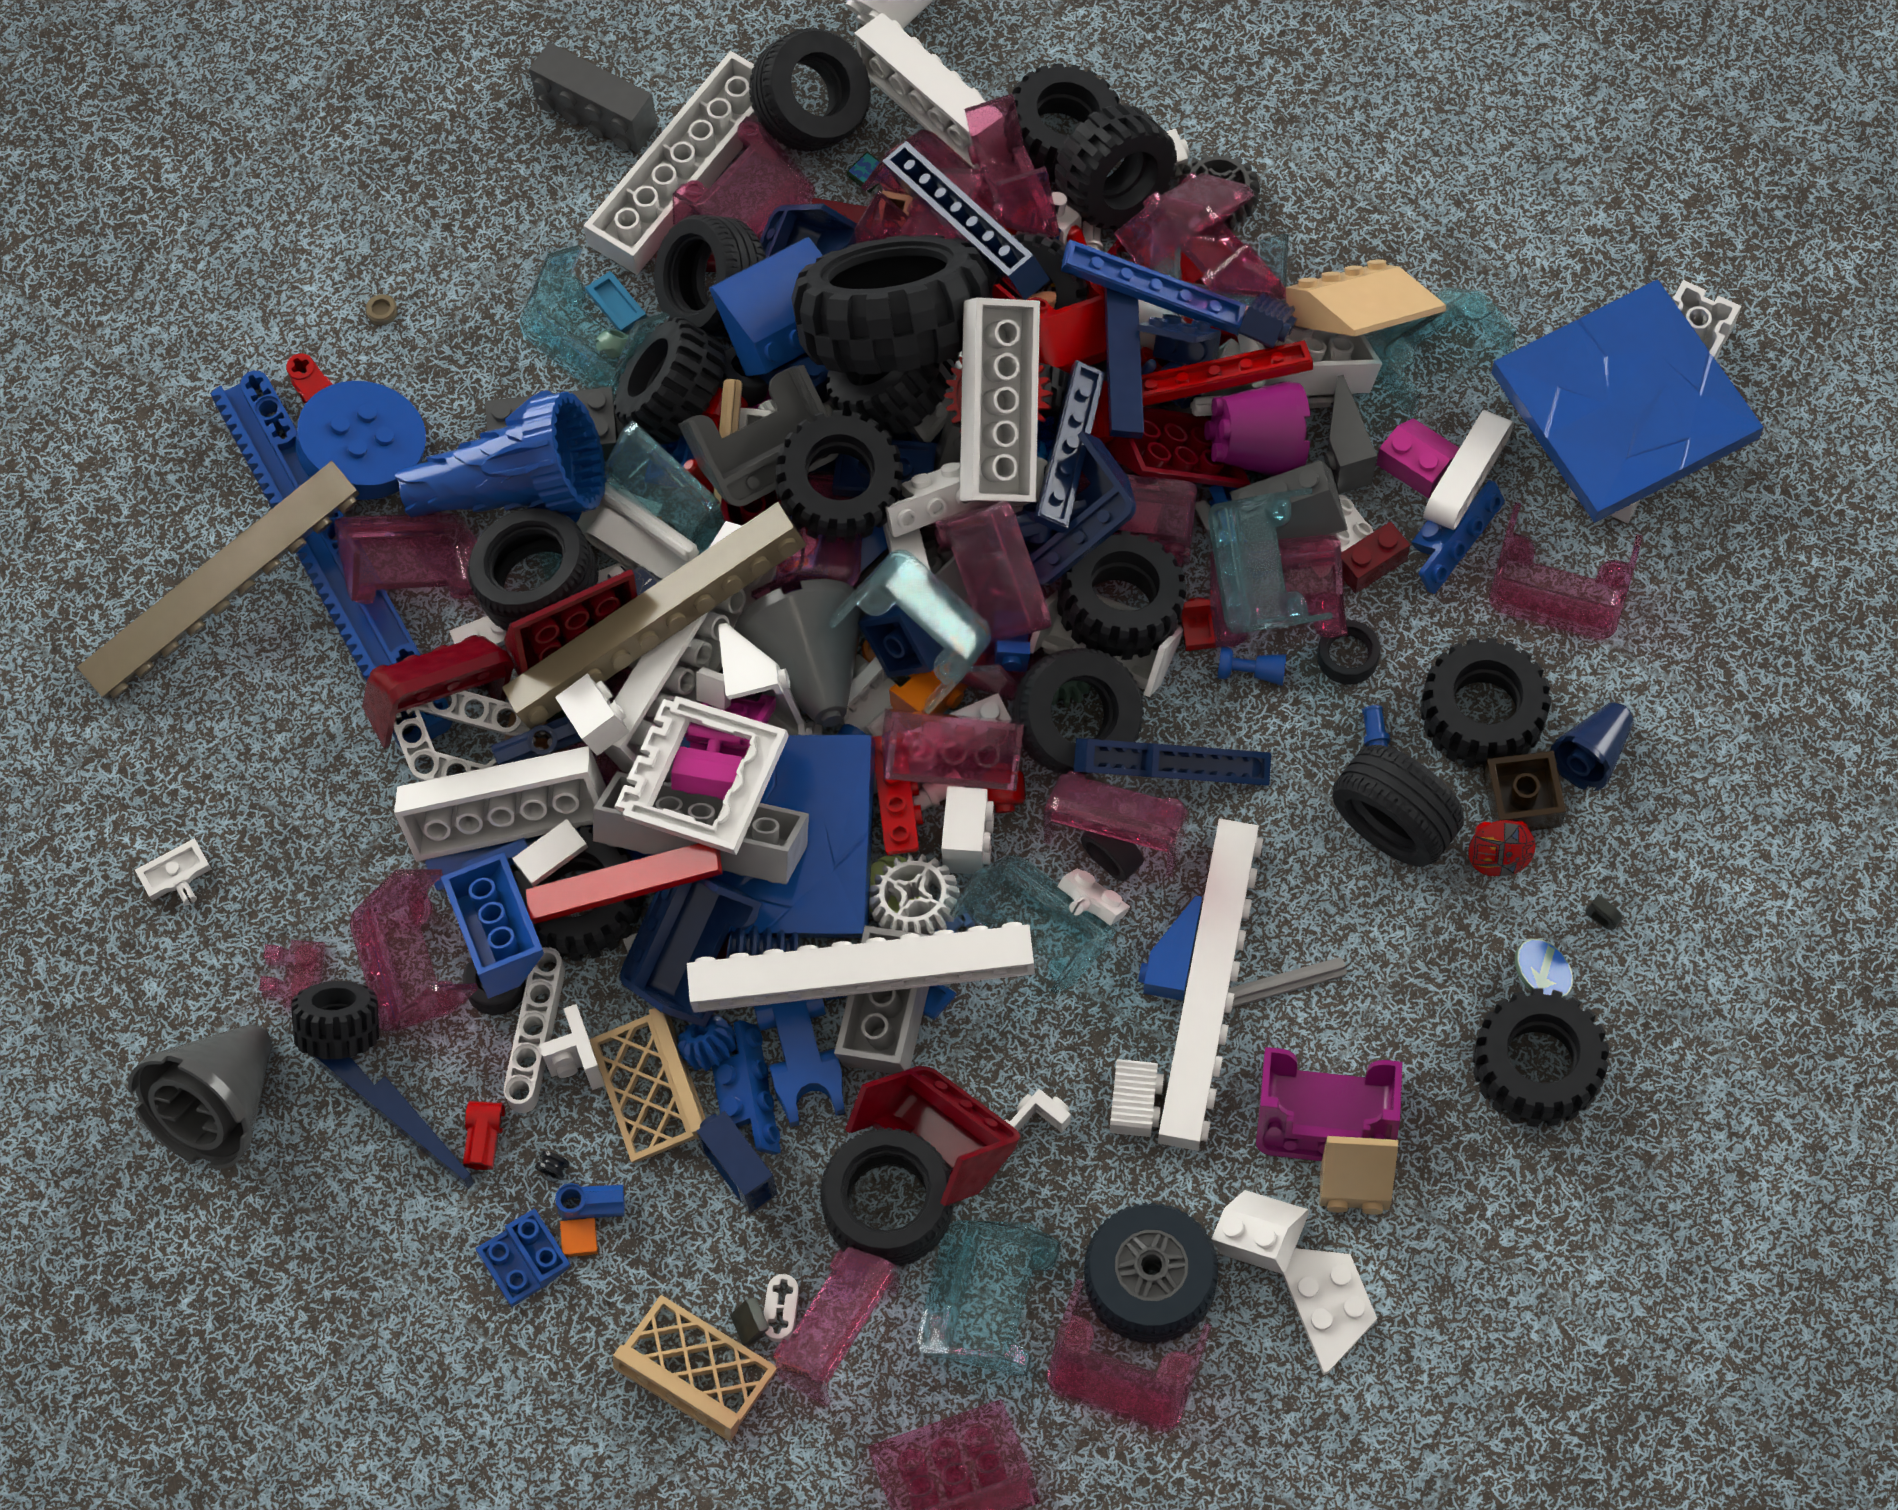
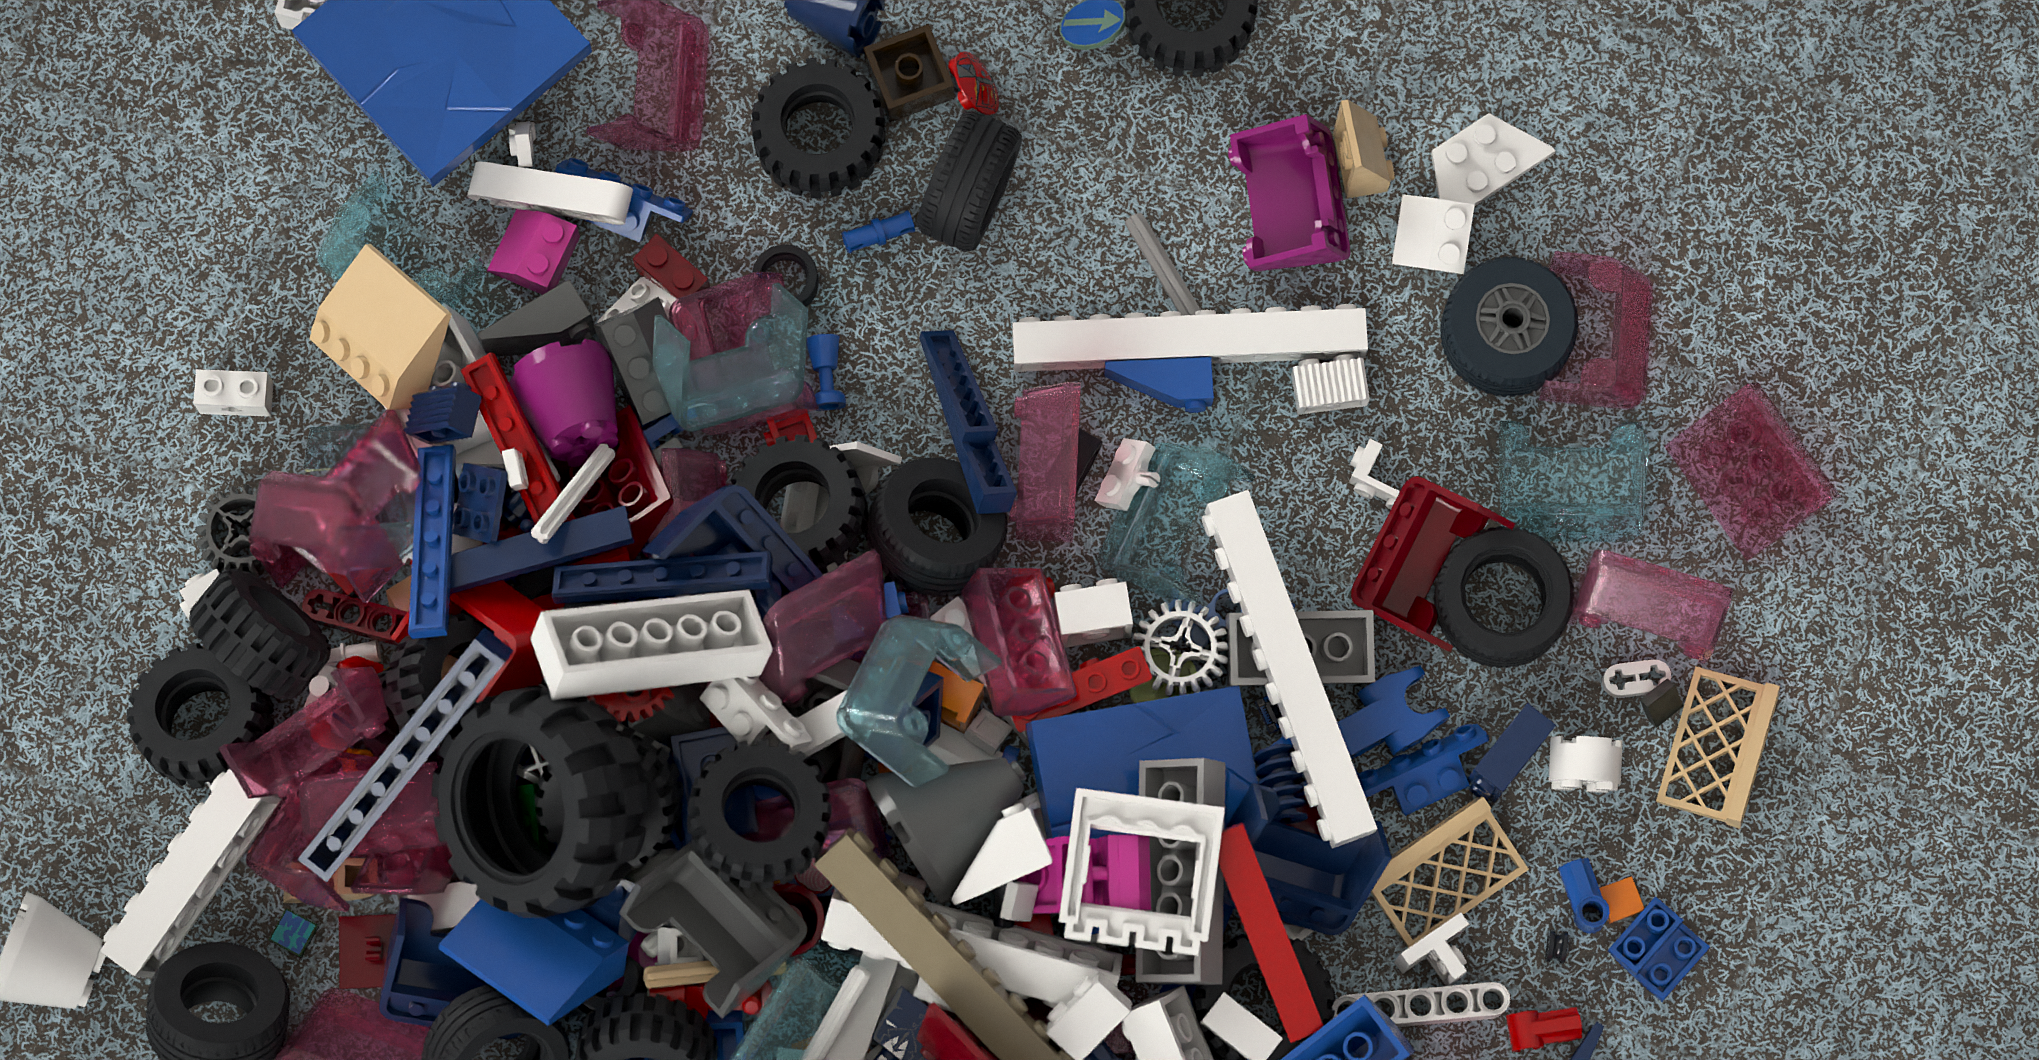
camera: 110 degrees left, 10 degrees up
(707, 1045) = (1402, 821): blue gear -> none
(708, 1229) = (1585, 762): none -> white brick
(1168, 401) = (573, 493): none -> white axle
(1199, 357) = (516, 469): none -> white tile
(1342, 201) = (233, 393): none -> white brick
(1522, 458) = (521, 142): none -> white plate

